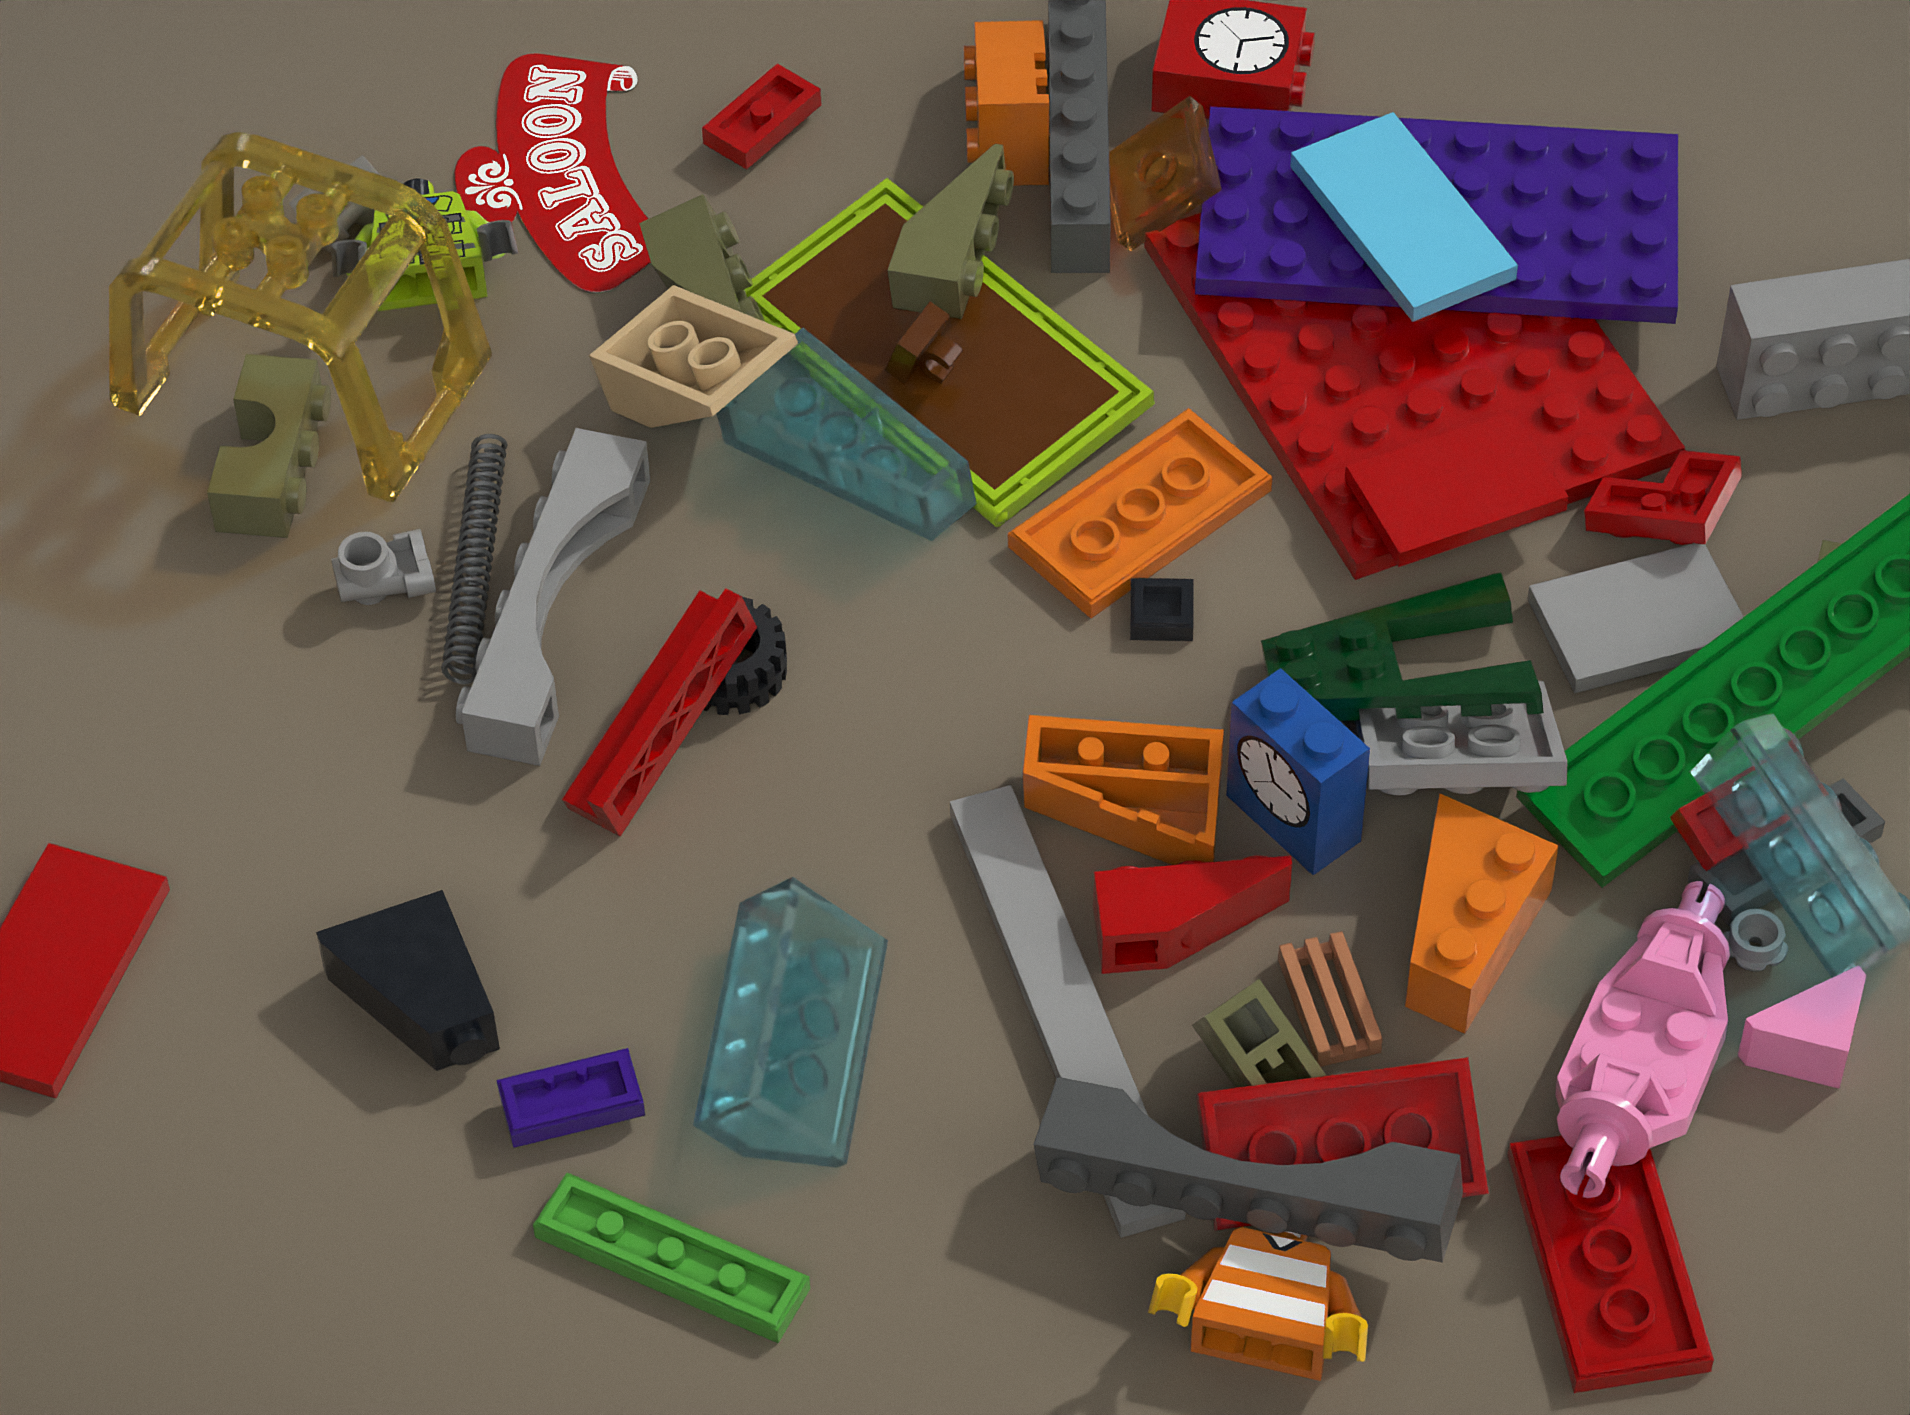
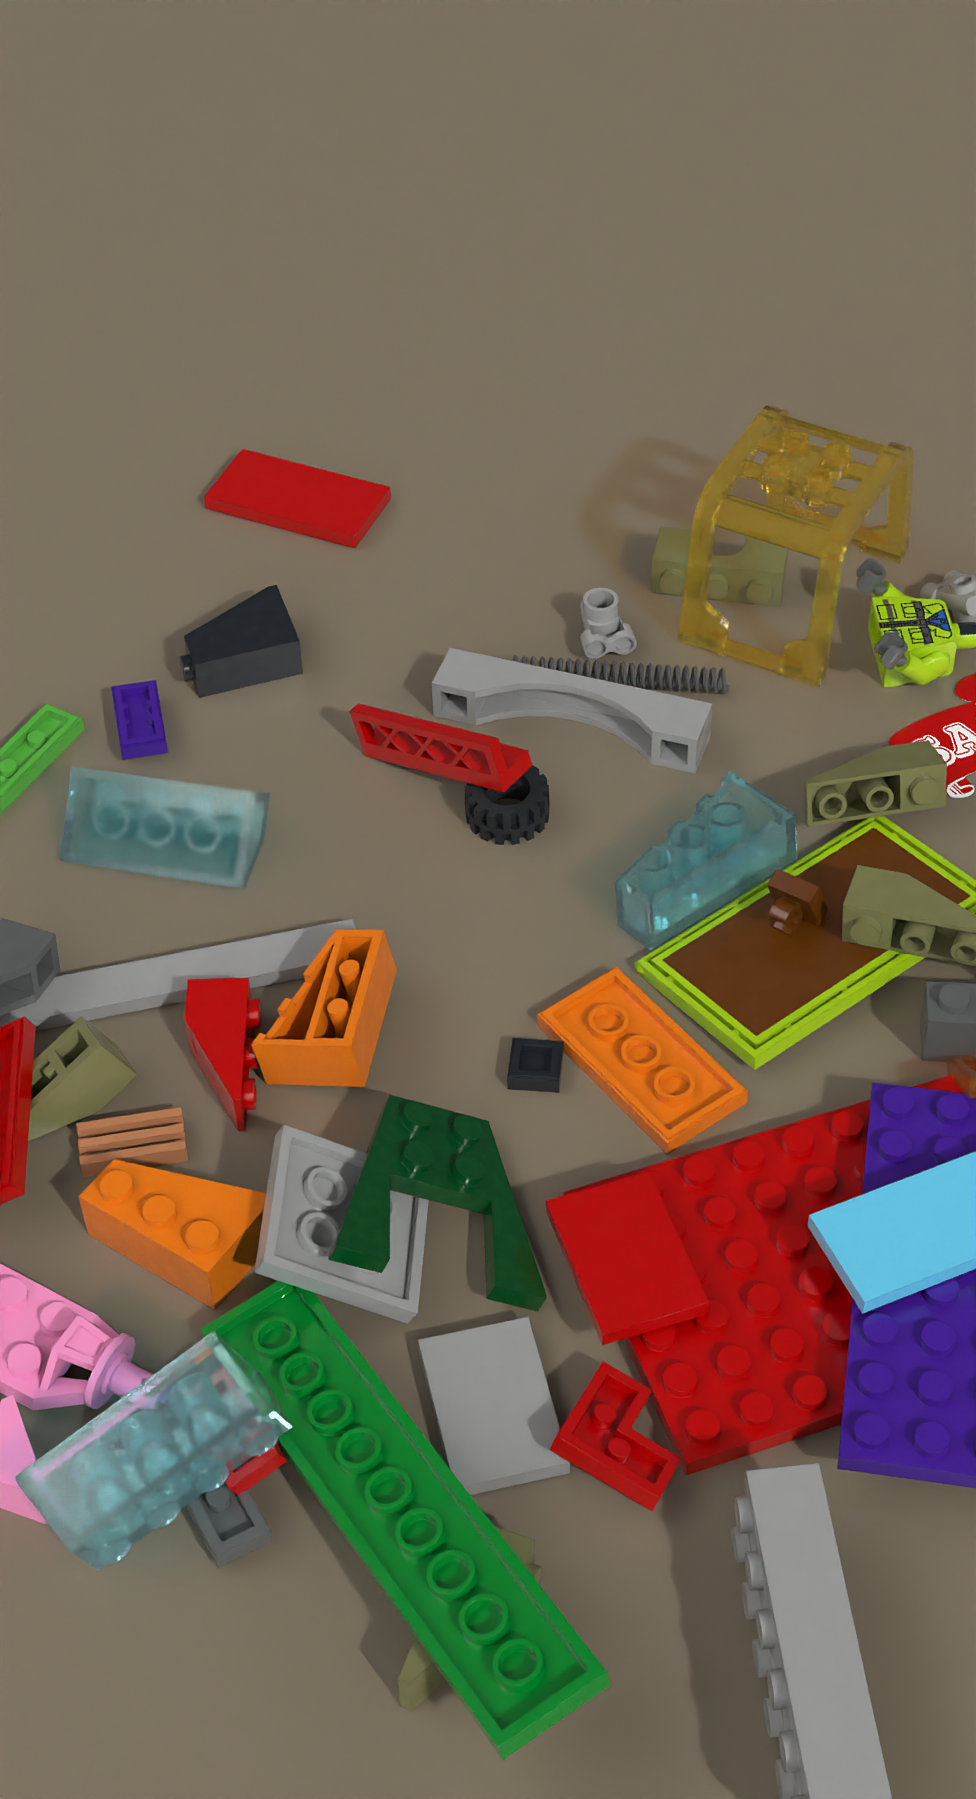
camera: 95 degrees right, 5 degrees down
(685, 359) = (769, 752): tan slope -> none
(1297, 771) = (316, 1088): blue brick -> none

